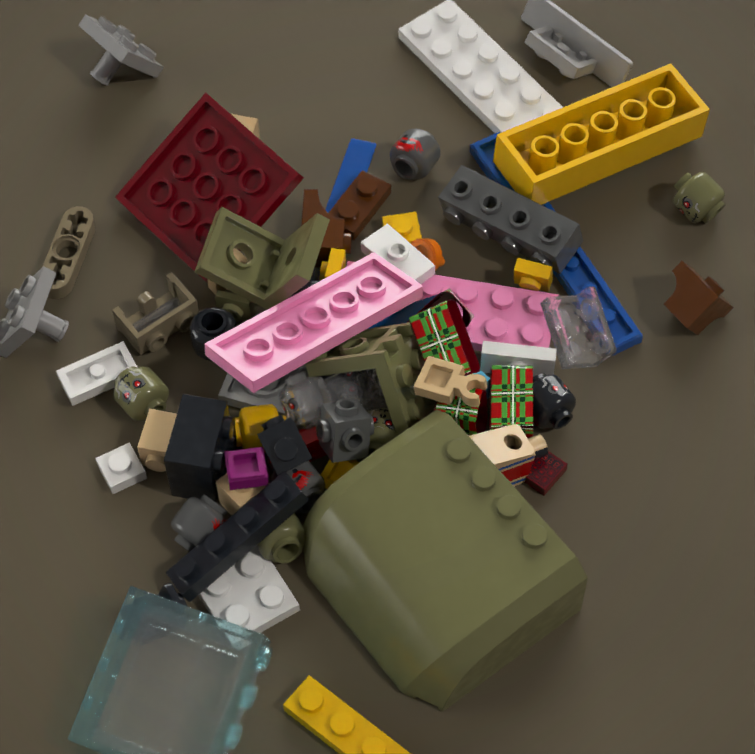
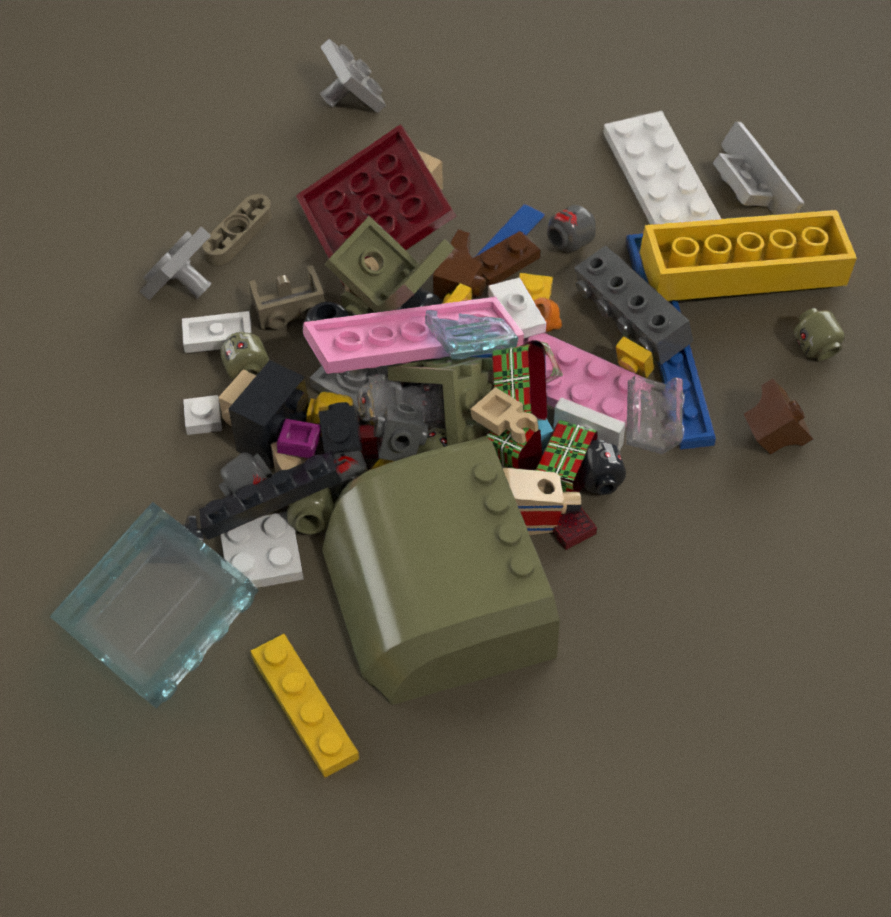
camera: 20 degrees right, 5 degrees down
(377, 305) = (471, 334): none -> clear light blue wing

